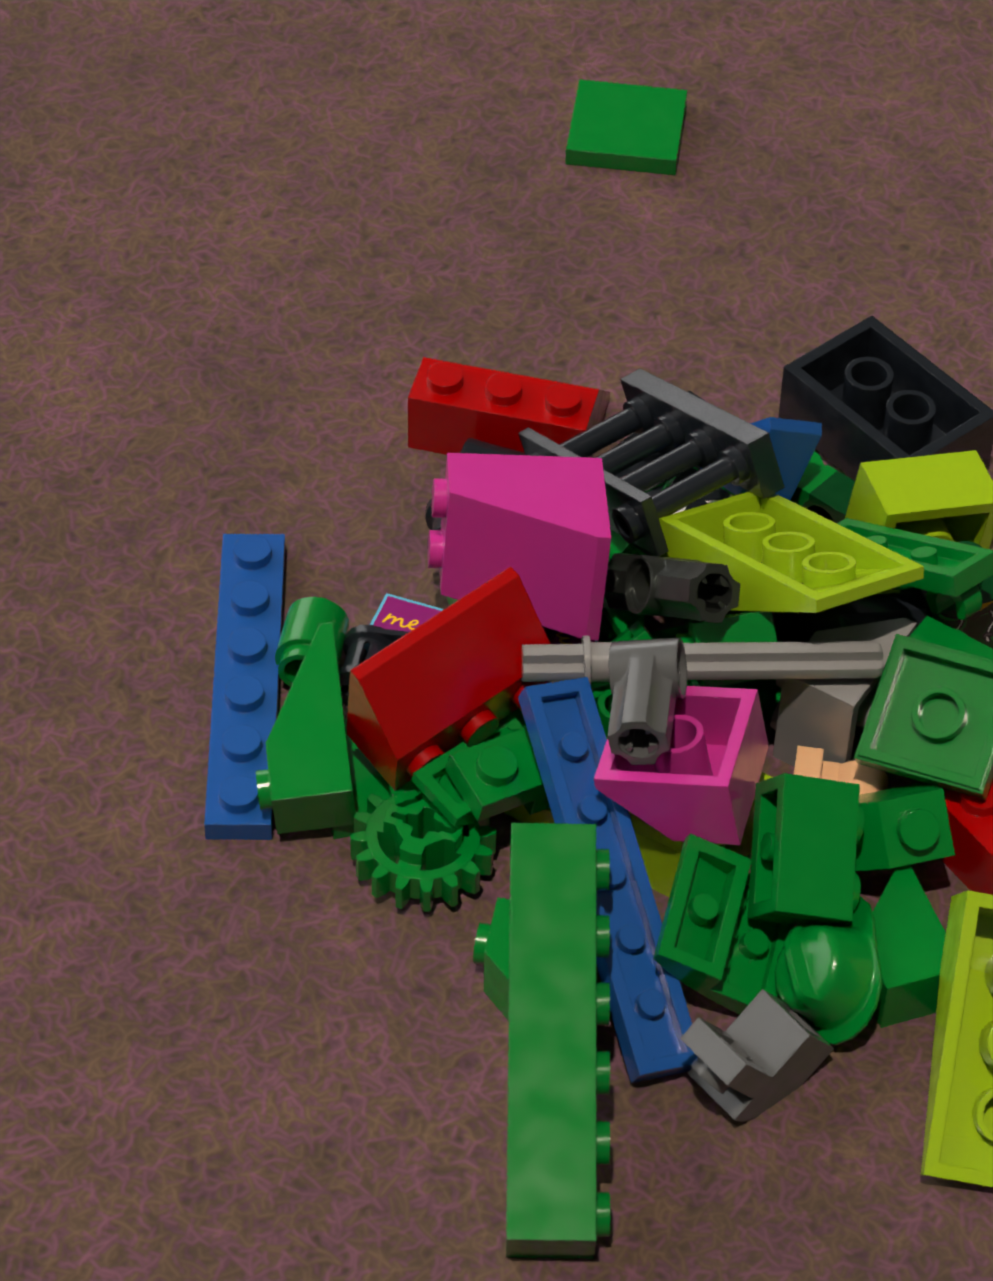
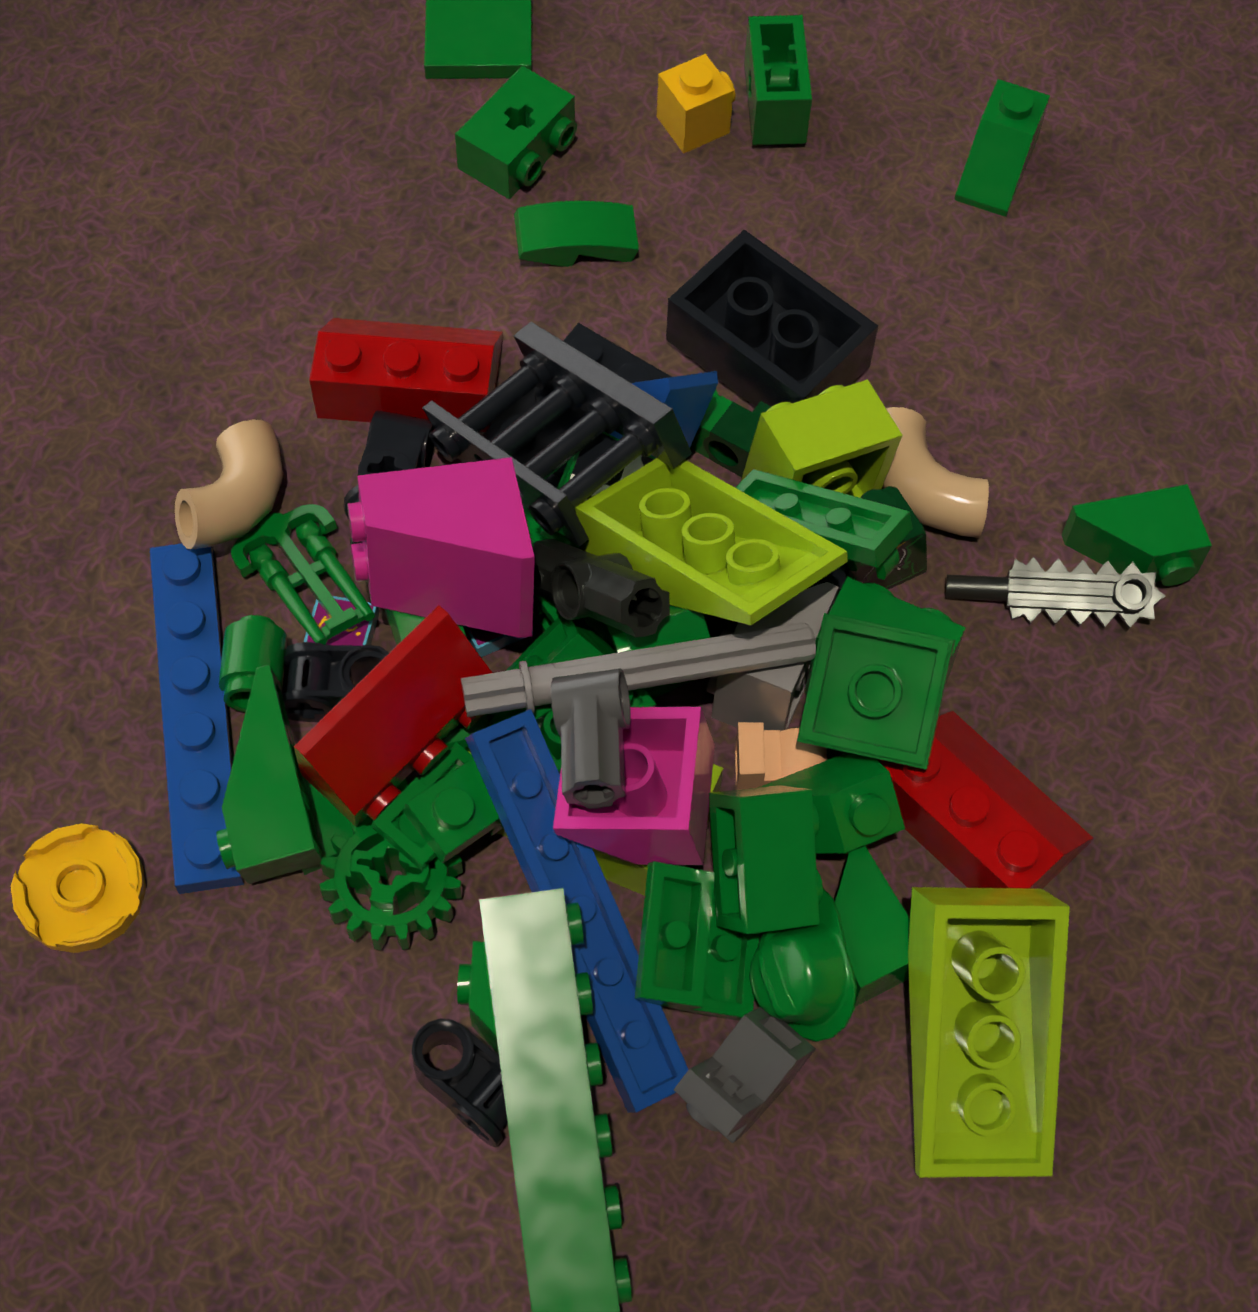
camera: 10 degrees left, 15 degrees up
(108, 837) = (90, 905): none -> yellow tile
(321, 496) = (240, 495): none -> tan cylinder
(353, 537) = (276, 529): none -> green piece
(467, 1033) = (469, 1089): none -> black piece
(651, 216) = (516, 132): none -> green brick
(685, 307) = (564, 229): none -> green slope
(841, 209) = (695, 102): none -> yellow brick
(930, 196) = (777, 79): none -> green brick

